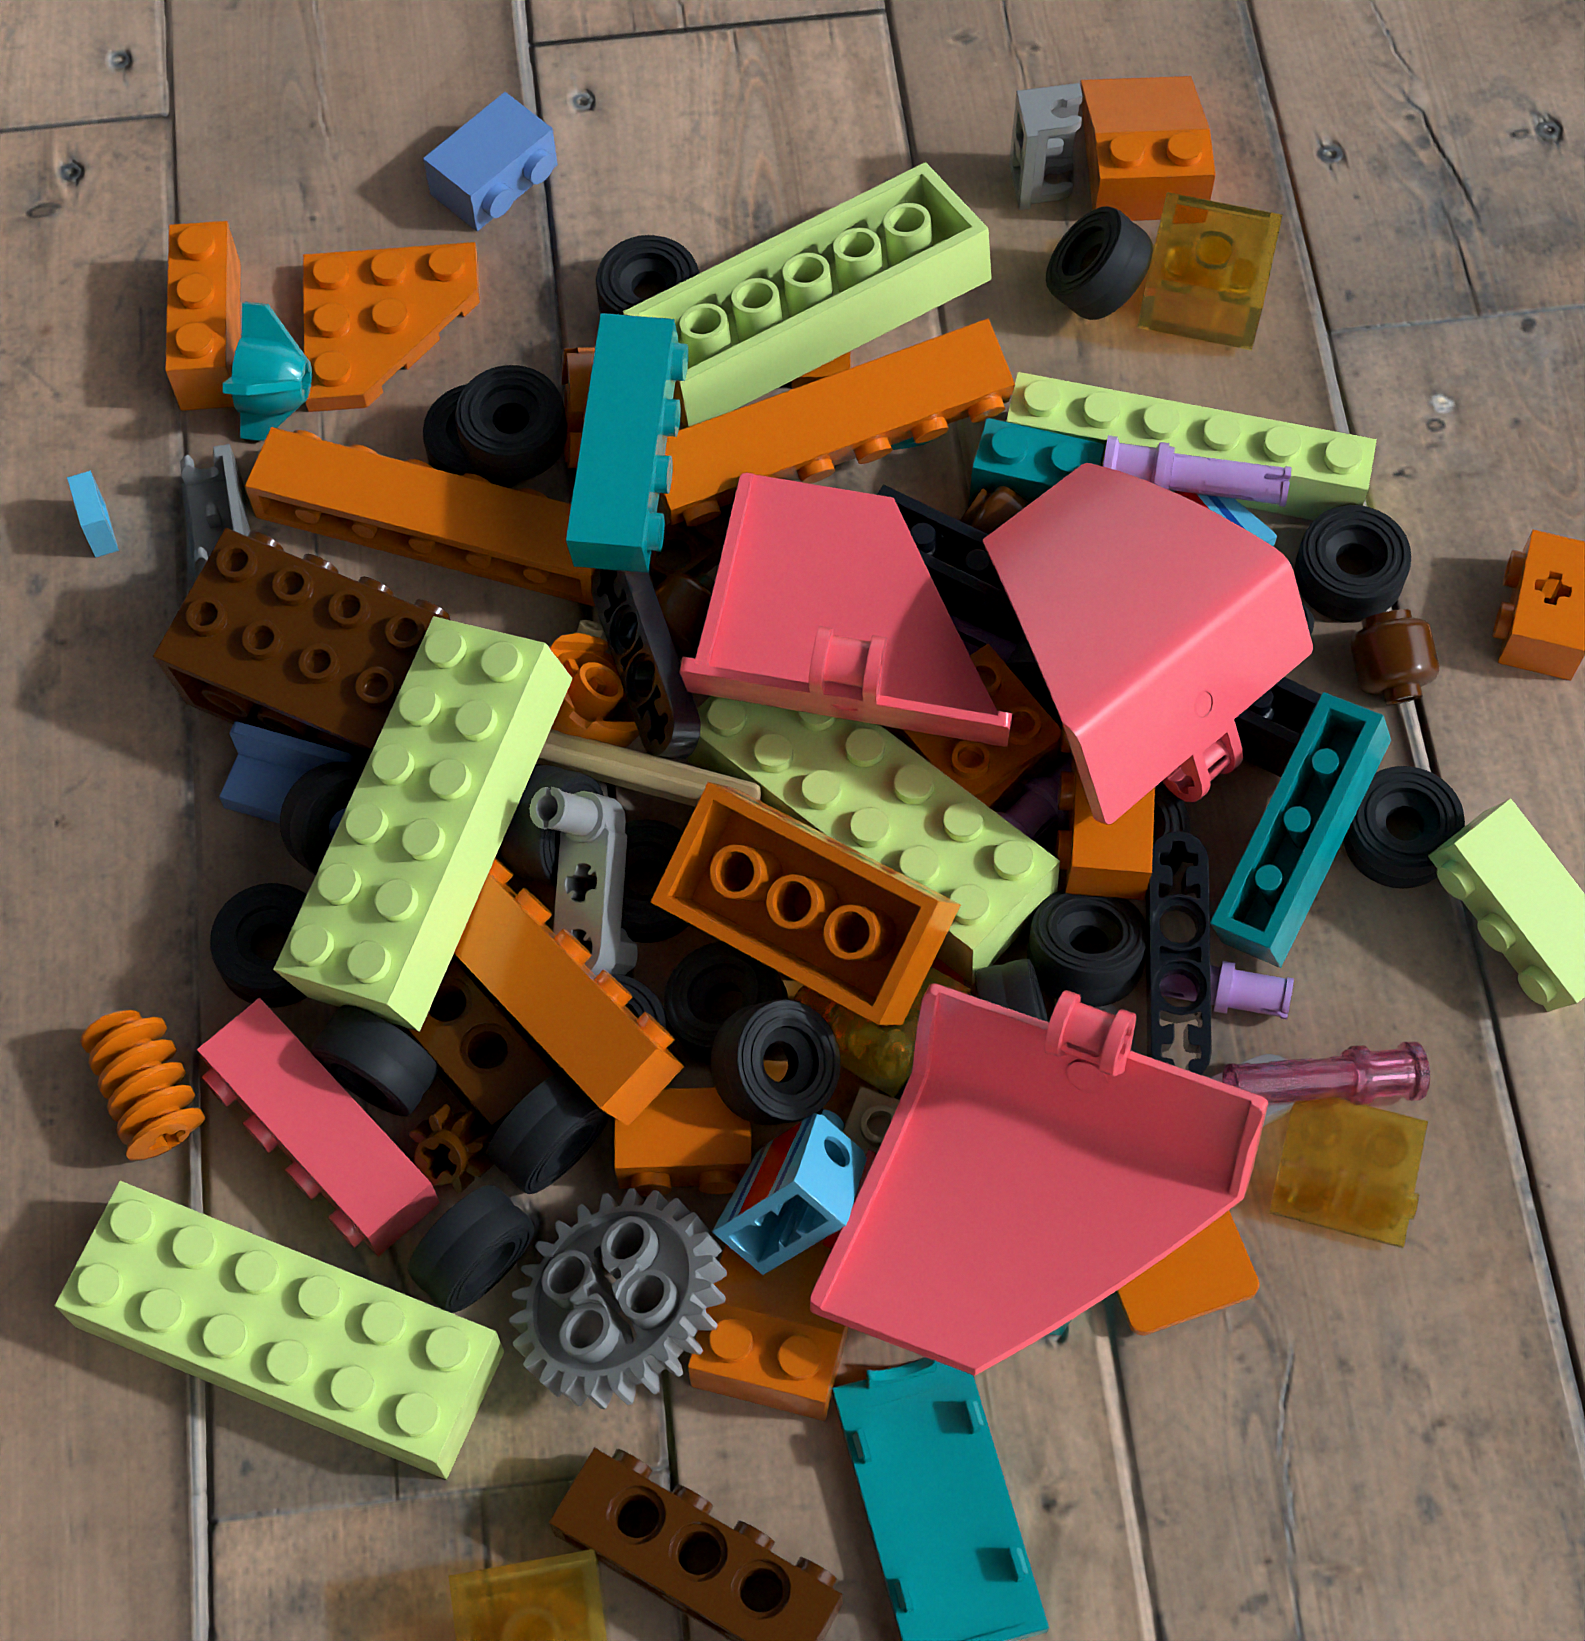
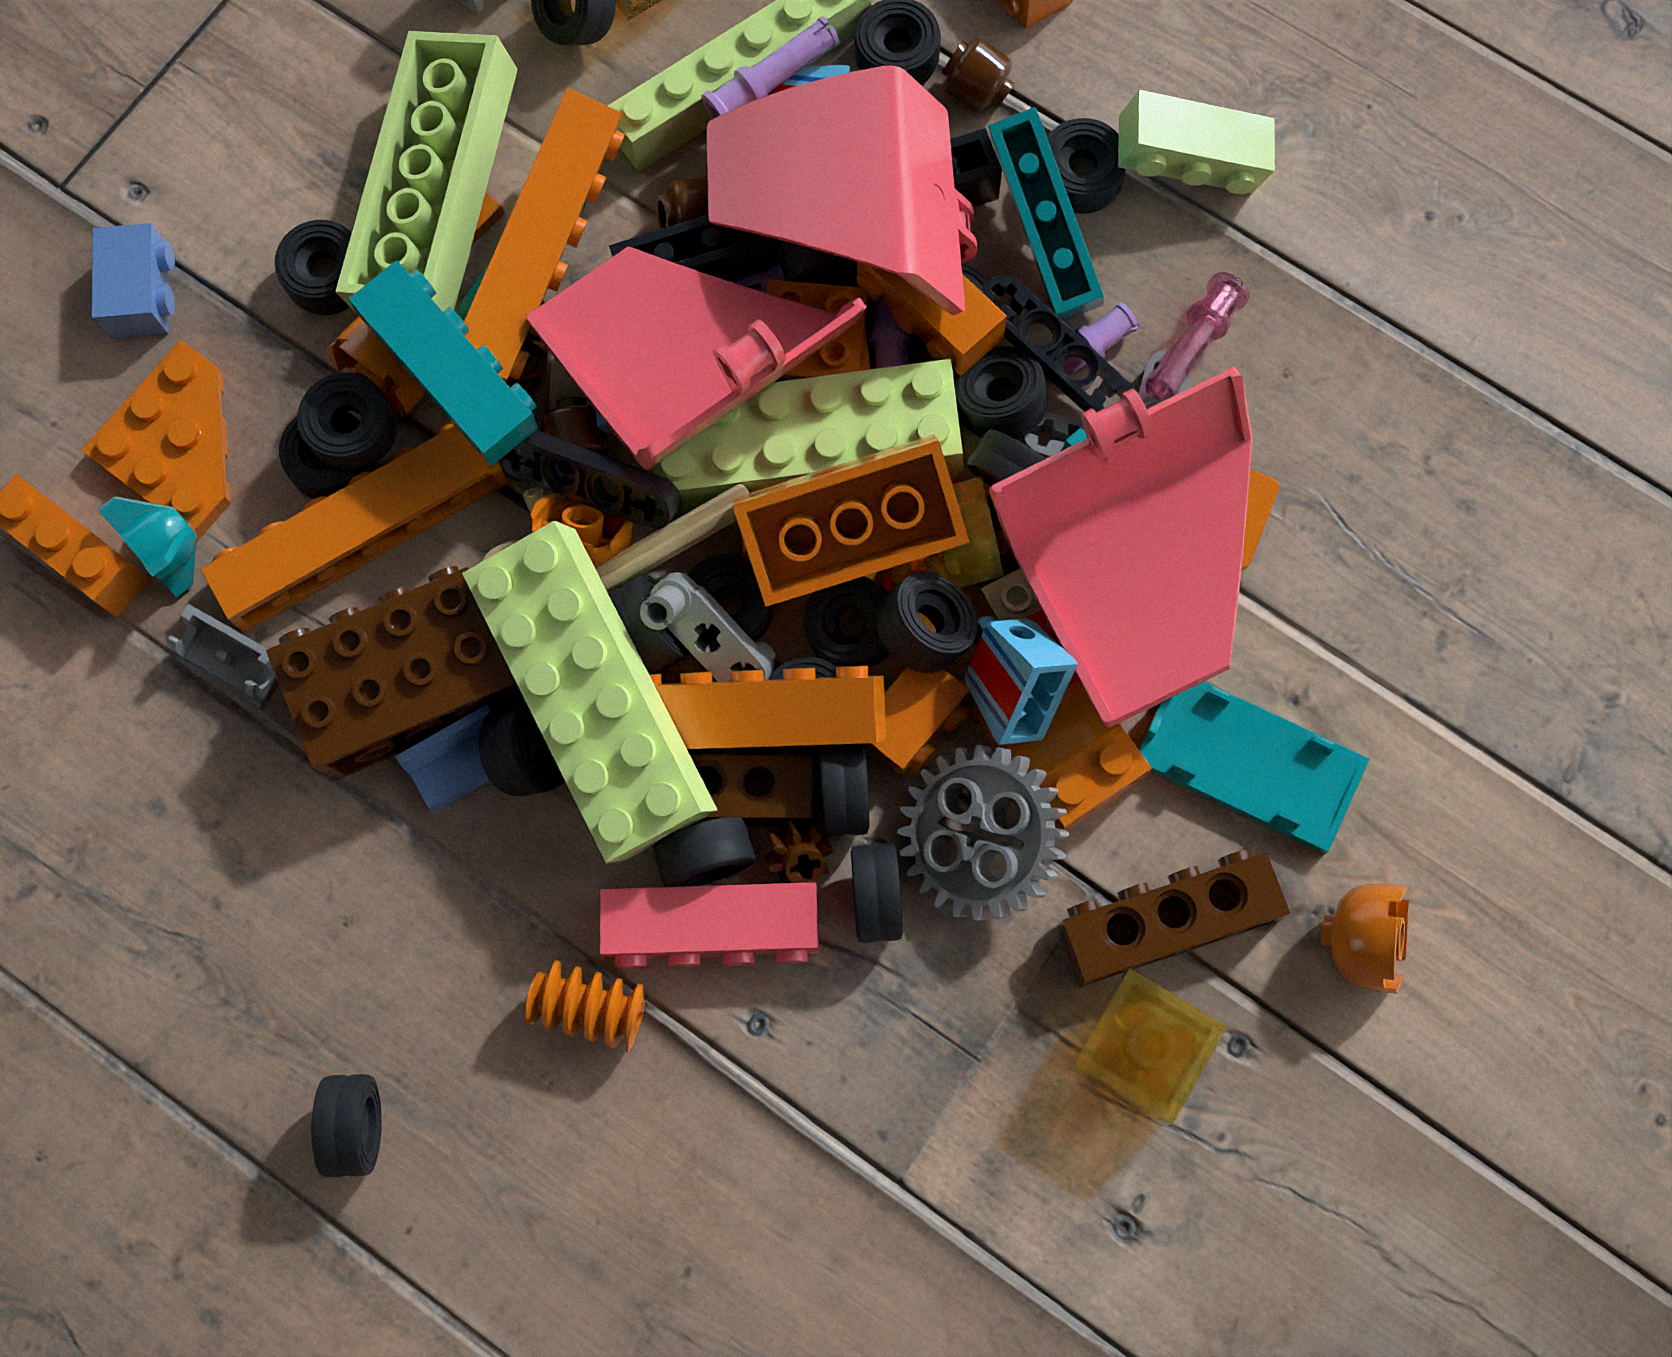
camera: 45 degrees left, 10 degrees up
(92, 514) = (146, 730): medium azure tile -> none
(238, 929) = (532, 852): black tyre -> none
(282, 1329) = (822, 1045): yellowish green brick -> none
(1027, 458) = (667, 155): teal brick -> none
(1350, 1169) = (1270, 369): clear yellow hinge -> none

